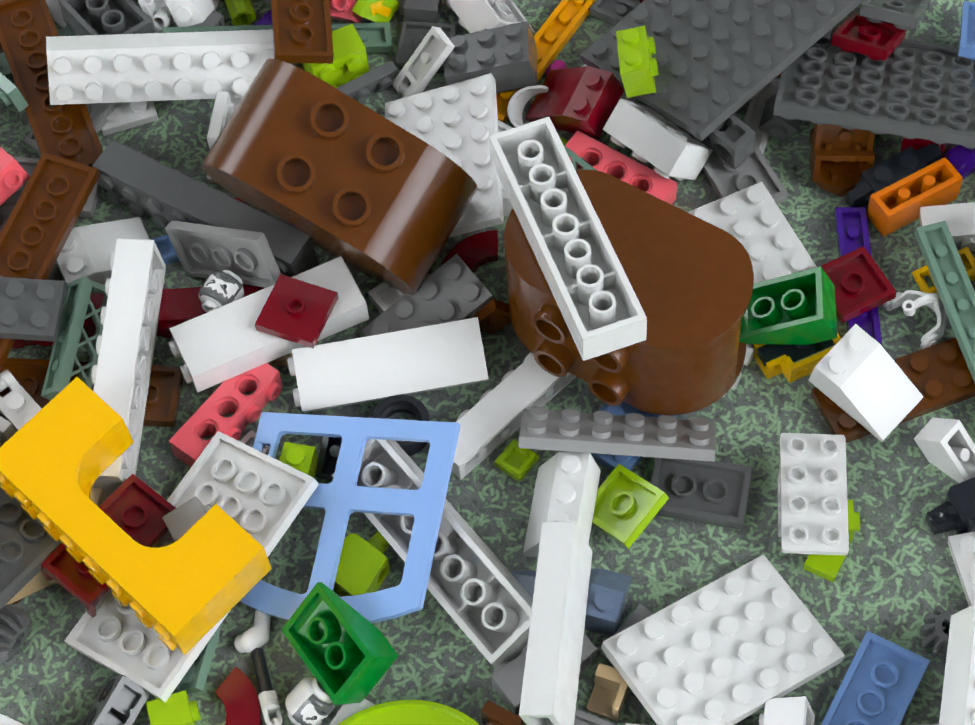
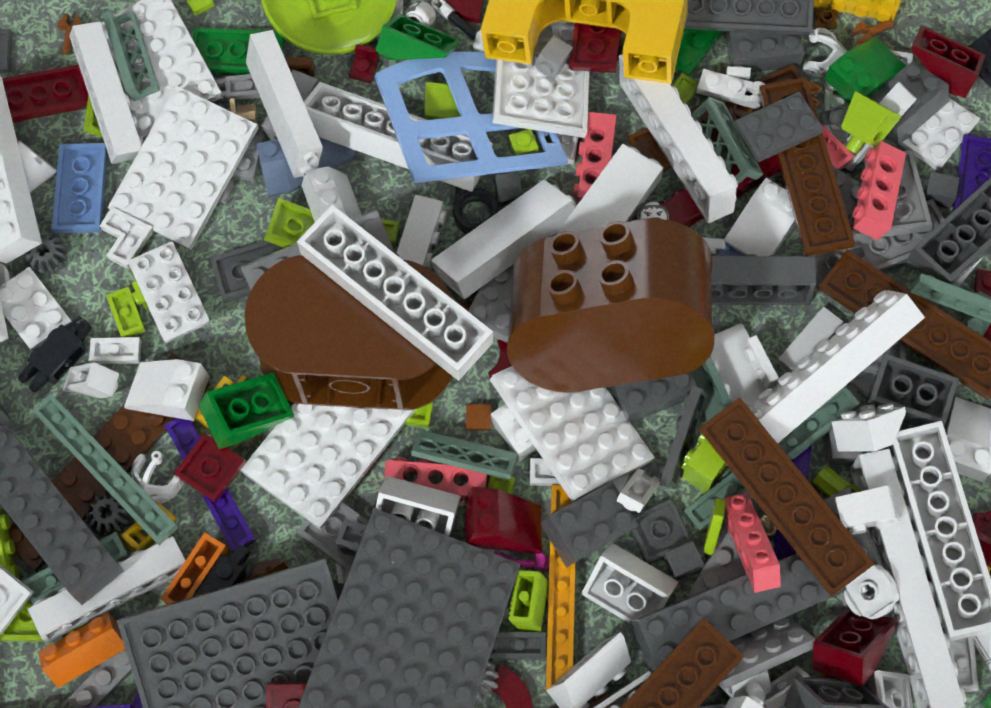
camera: 150 degrees right, 10 degrees up
(158, 133) = (805, 344): none -> white tile
(296, 311) = (582, 212): dark red plate -> none
(418, 683) = (364, 63): none -> dark red bracket
(519, 100) = (539, 492): white helmet -> none
(588, 30) = (528, 601): none -> lime brick
(636, 61) = (457, 547): lime brick -> none
(830, 604) = (131, 236): none -> white plate
(876, 513) = (125, 312): none -> lime plate
(907, 475) = (115, 350): none -> white plate

